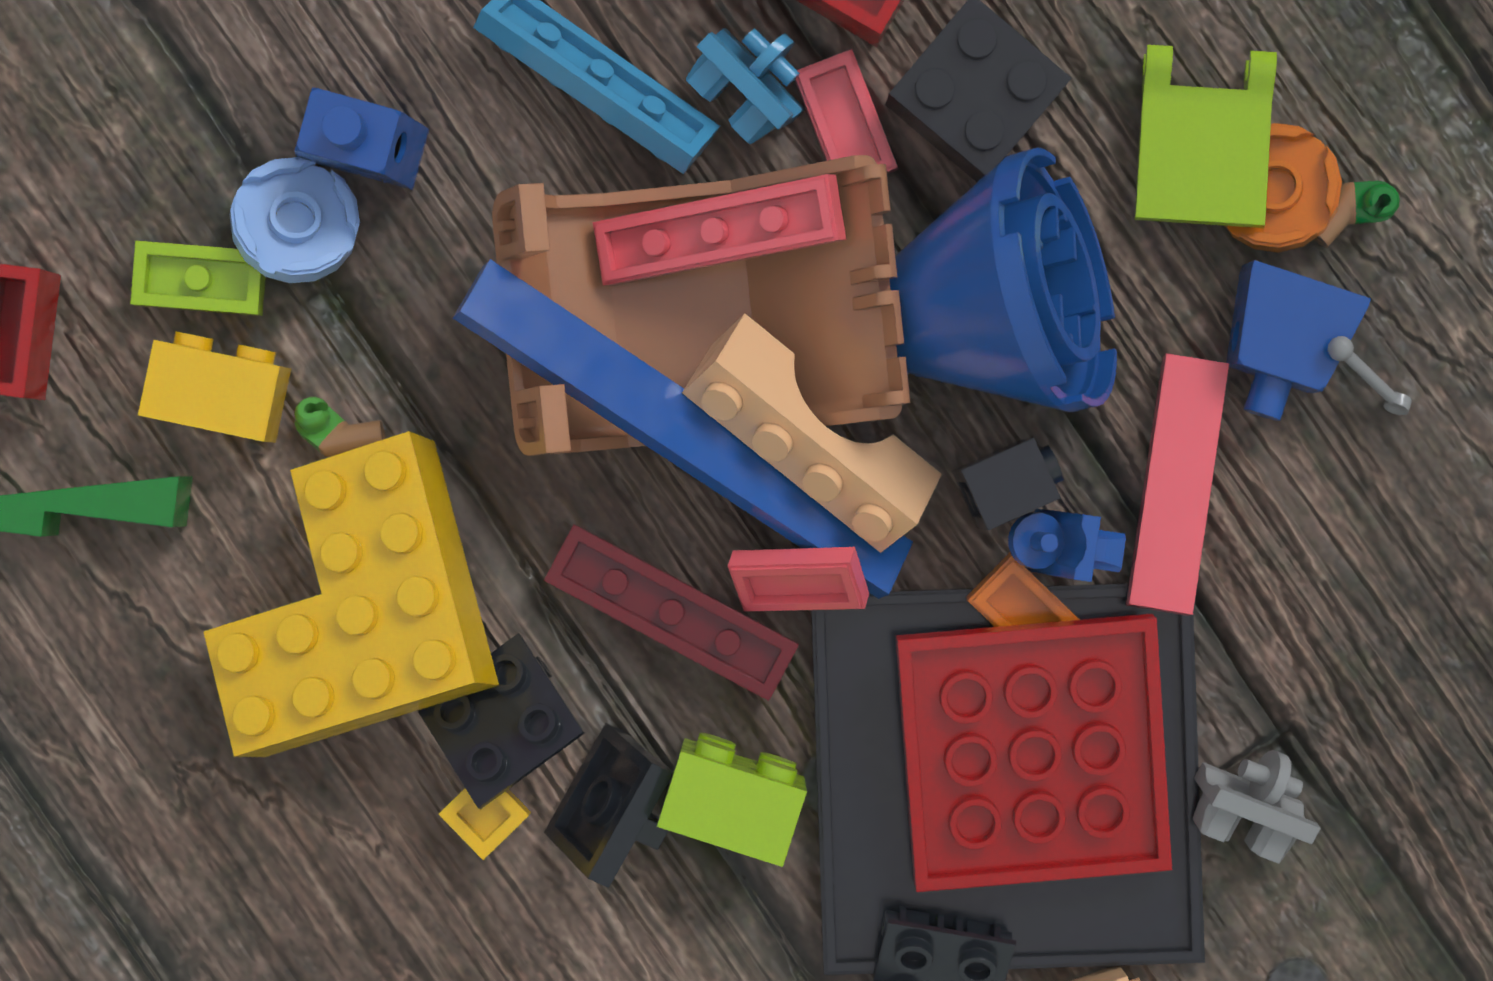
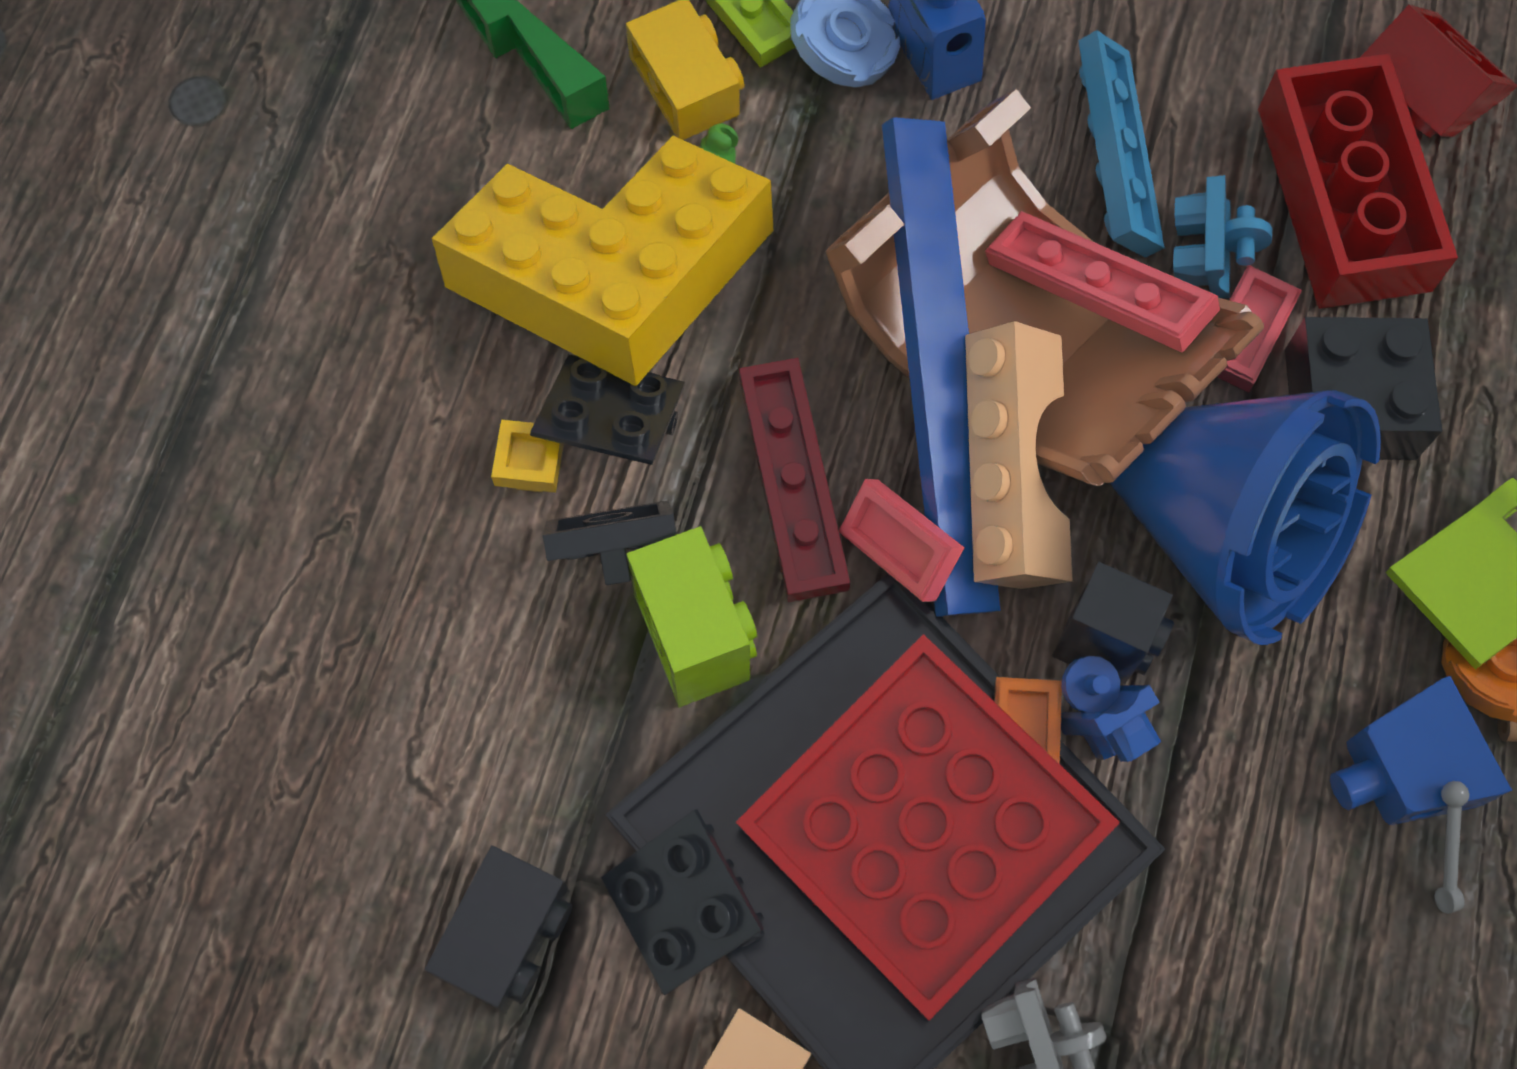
camera: 50 degrees right, 20 degrees down
(1177, 484) = (1226, 772): coral tile -> none

